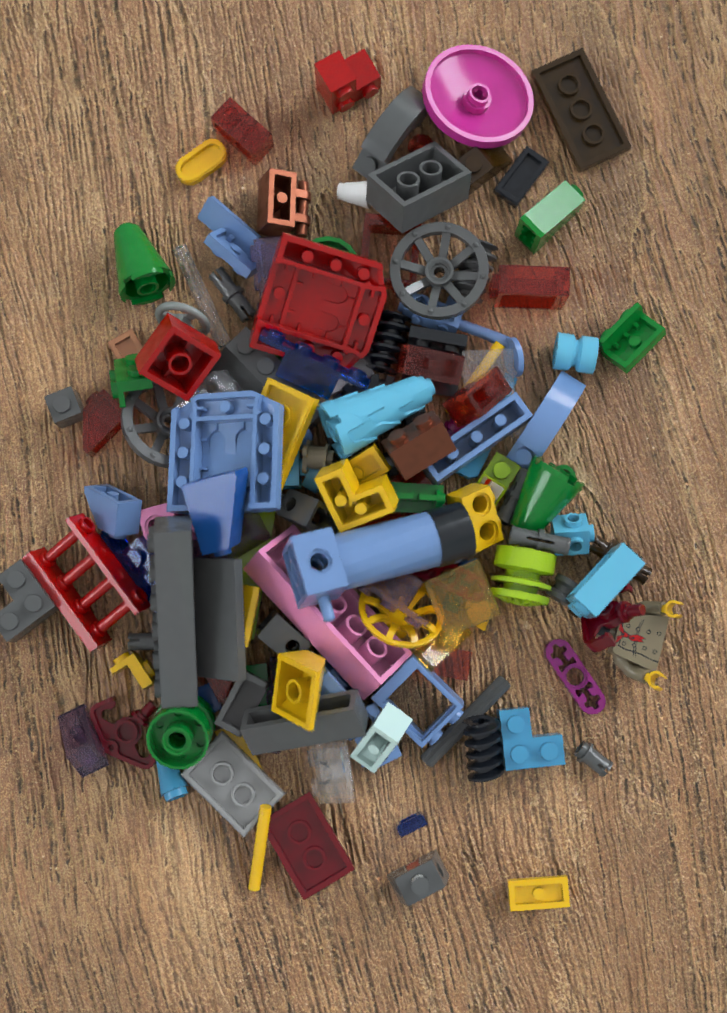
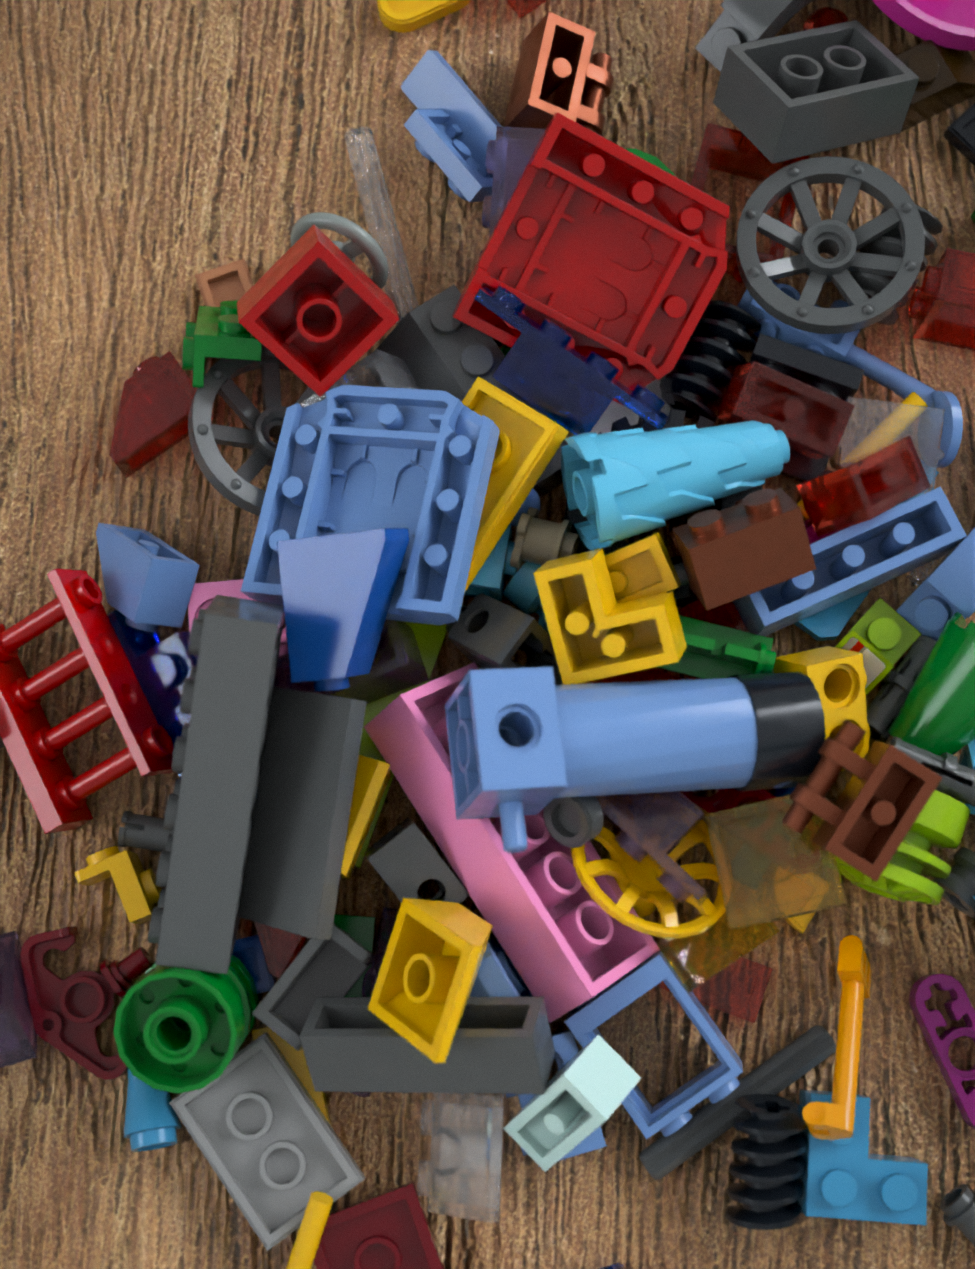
camera: 10 degrees right, 5 degrees down
(65, 407) = (93, 374): dark grey brick -> none
(139, 267) = (280, 152): green cone -> none
(232, 294) = (438, 230): dark grey pin -> none
(353, 193) = (692, 92): white cone -> none
(357, 598) = (573, 820): none -> dark grey tile
(504, 565) = (873, 808): none -> copper brick
(514, 650) = (836, 1118): none -> light orange hinge

